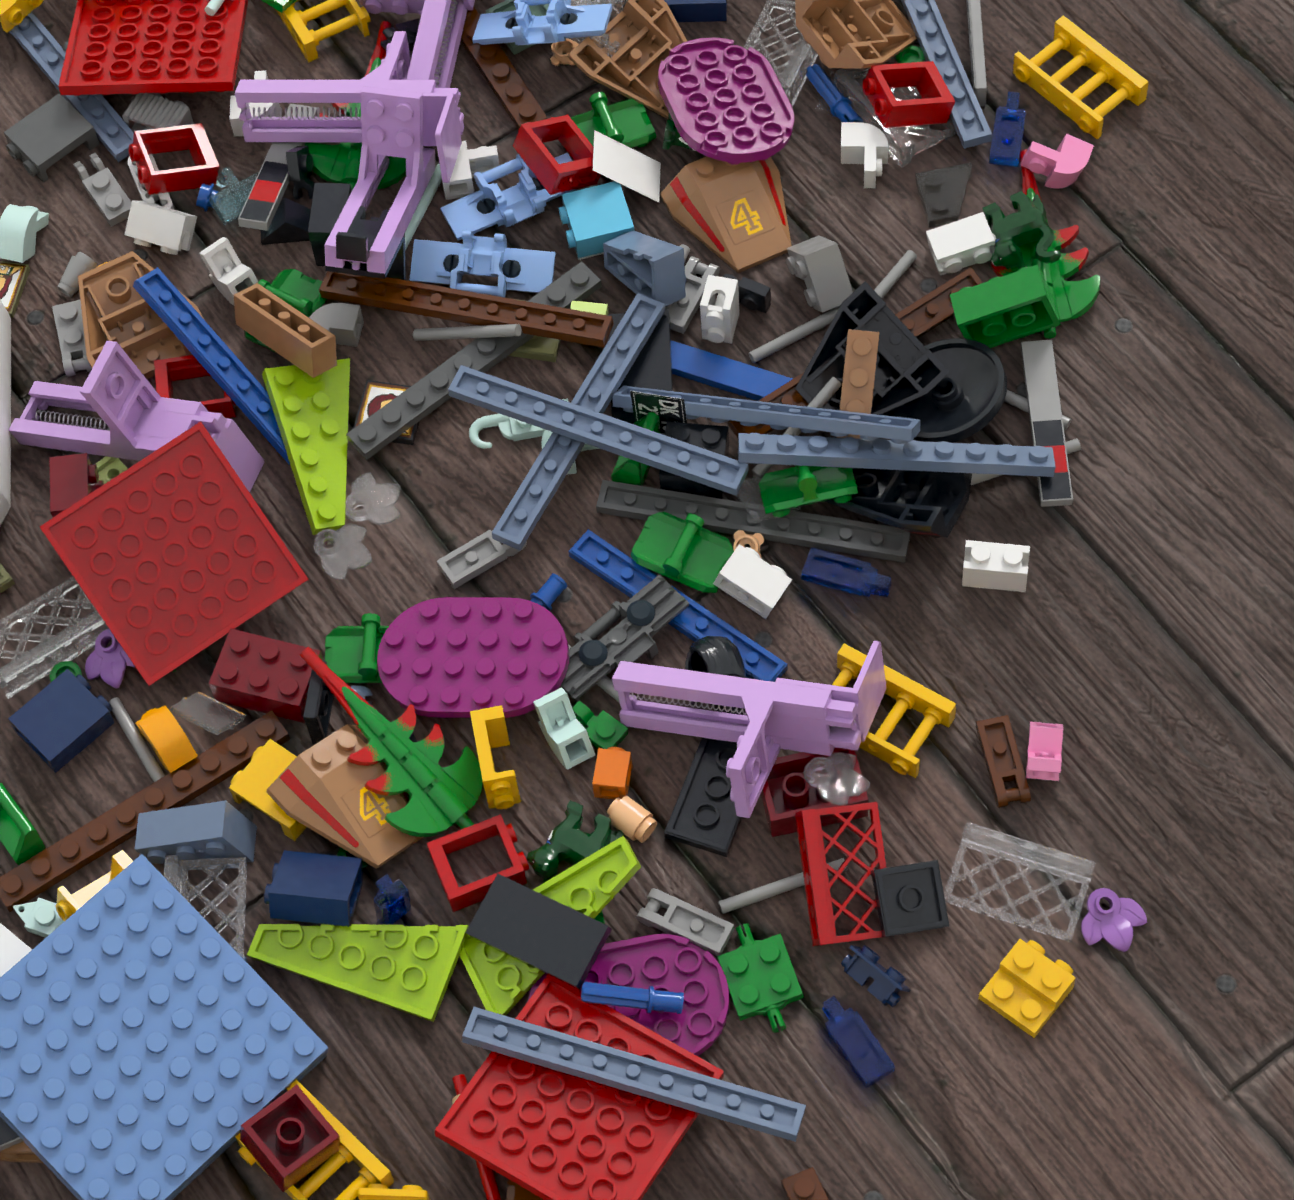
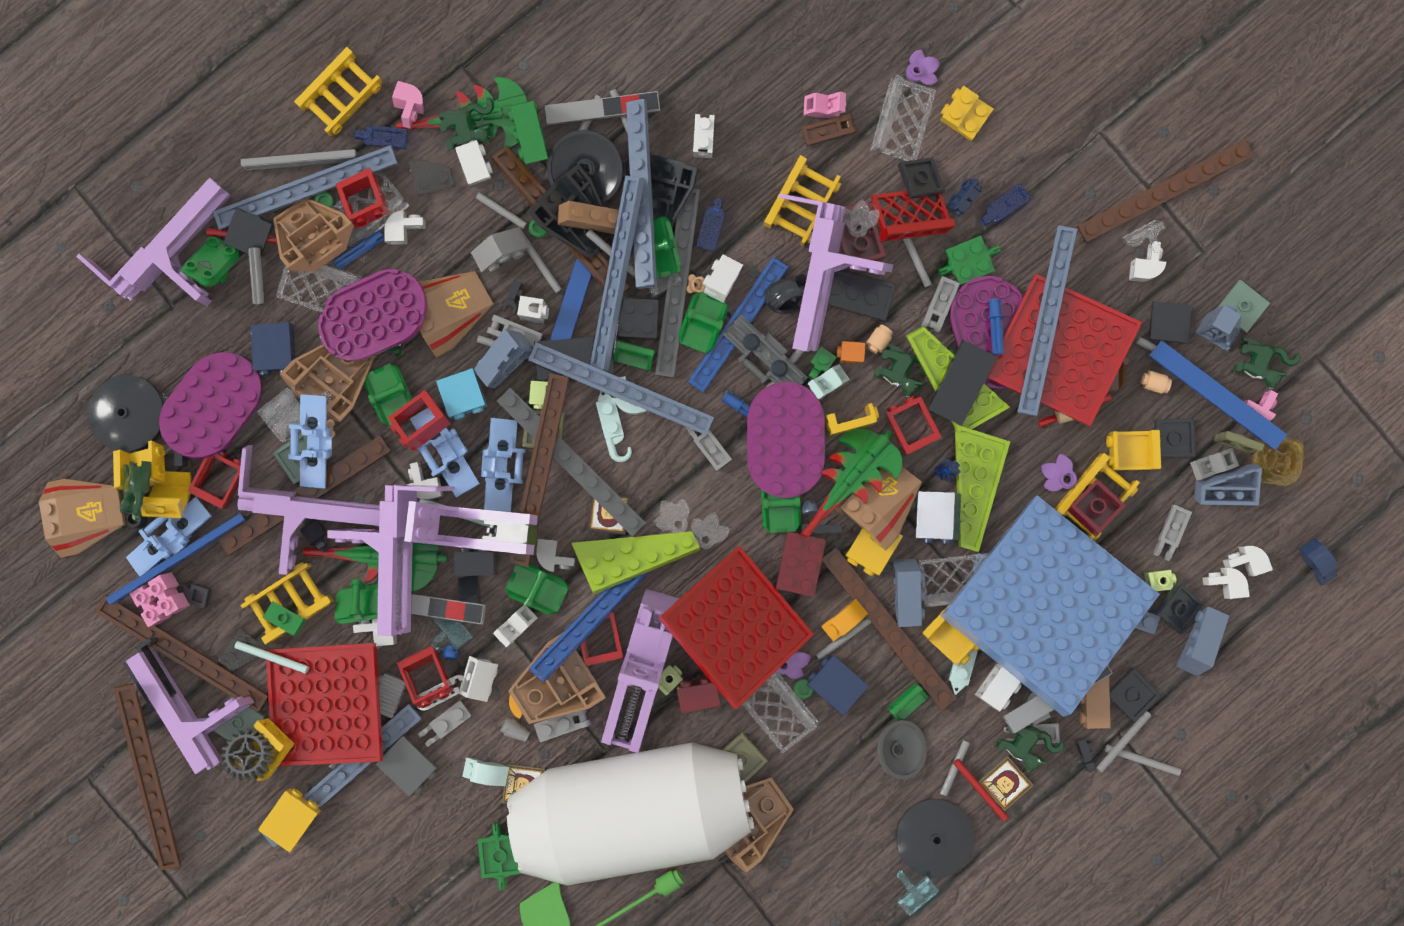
camera: 100 degrees left, 25 degrees up
(207, 713) = (827, 596): clear piece -> none
(285, 330) = (564, 582): medium nougat brick -> none
(287, 67) = (357, 602): none -> green shield
(299, 168) = (430, 591): black plate -> none
(367, 1100) = (1056, 472): none -> medium lavender plate
(467, 332) = (555, 467): light grey bar -> none
(598, 430) = (634, 375): sand blue plate -> none
(626, 166) = (423, 377): white sticker -> none

